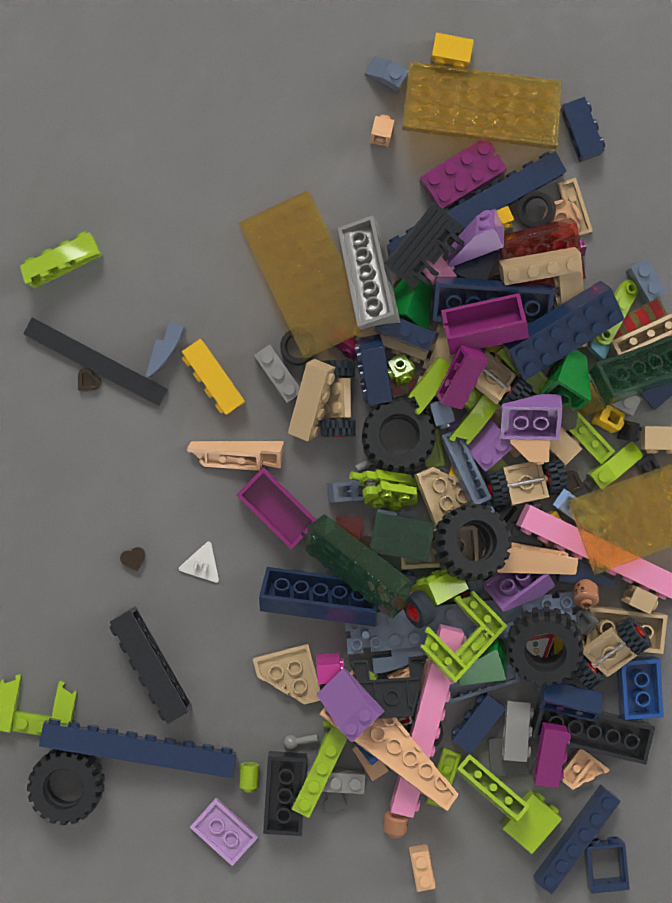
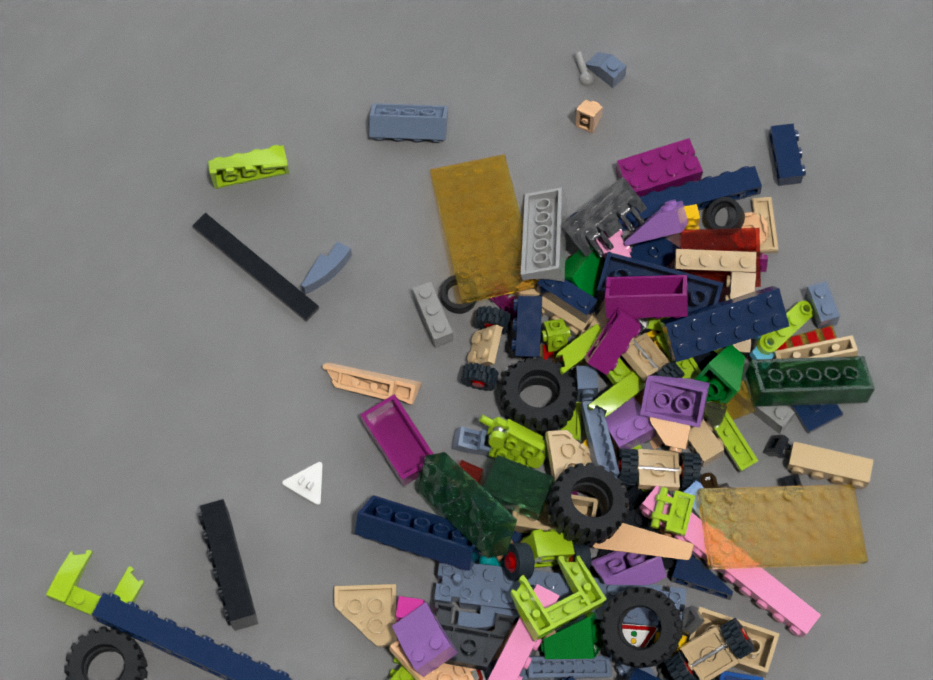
camera: 20 degrees right, 20 degrees down
(87, 380) = (242, 283): dark brown tile -> none
(133, 558) = (239, 460): dark brown tile -> none
(205, 176) = (408, 122): none -> sand blue slope
(213, 376) = (367, 303): yellow brick -> none
(311, 400) = (459, 341): tan brick -> none
(369, 87) = (586, 77): none -> light grey bar
(452, 50) = (673, 60): yellow brick -> none
(482, 105) = (691, 111): clear yellow plate -> none
(557, 529) = (679, 511): none -> lime plate
(585, 594) = (697, 591): nougat head -> none
(614, 416) = (759, 428): yellow brick -> none
(615, 465) = (757, 475): lime slope -> none
(640, 598) = (755, 611): tan brick -> none

